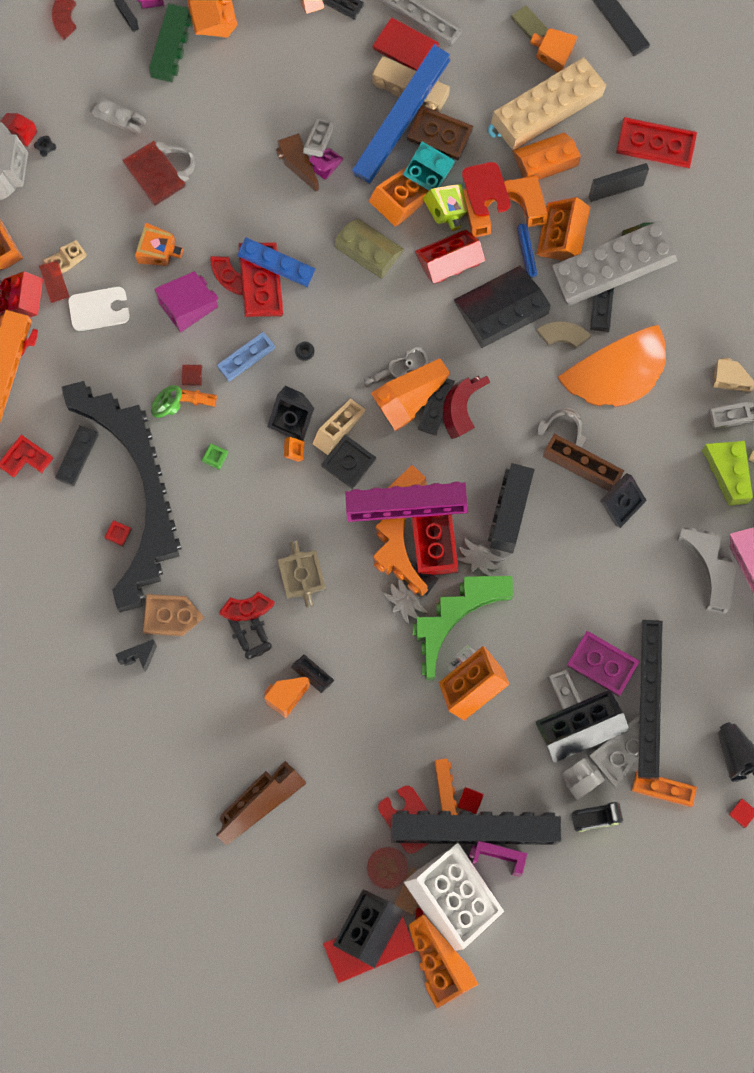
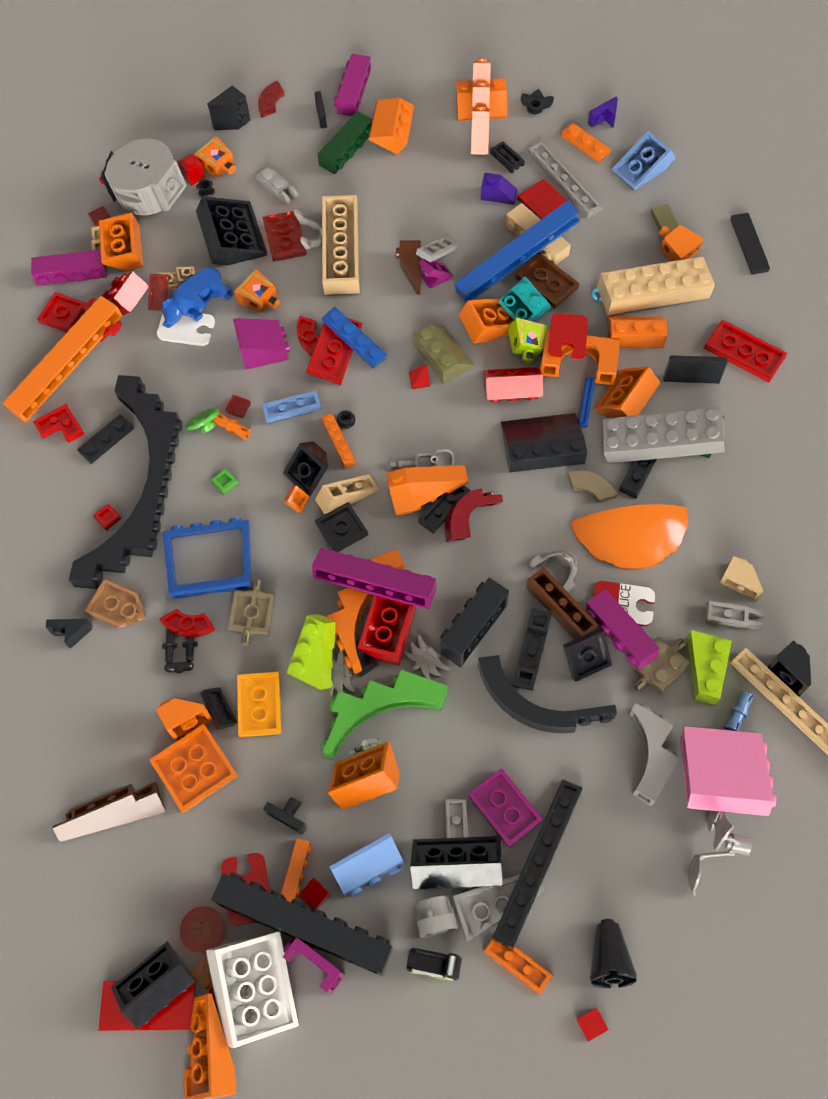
camera: 25 degrees right, 10 degrees down
(31, 47) = (229, 110): none -> black slope
(41, 107) = (216, 158): none -> orange torso
(92, 274) = (193, 296): none -> blue animal
(95, 186) = (230, 230): none -> black slope
(218, 164) = (340, 245): none -> tan brick
(253, 564) = (208, 587): none -> blue windscreen
(305, 374) = (338, 441): none -> orange piece
(315, 735) = (193, 768): none -> orange plate
(347, 656) = (259, 704): none -> light orange plate
(350, 46) = (497, 189): none -> dark purple slope
(357, 281) = (419, 377): none -> red slope
(381, 593) = (313, 652): none -> lime wedge
(417, 744) = (286, 815): none -> black tile
(508, 759) = (367, 866): none -> medium blue slope
(571, 513) = (532, 649): none -> black slope
(586, 572) = (532, 714): none -> black arch
(629, 440) = (627, 597): none -> white piece
(644, 465) = (622, 630): none -> magenta brick
(687, 484) = (664, 668): none -> dark tan plate

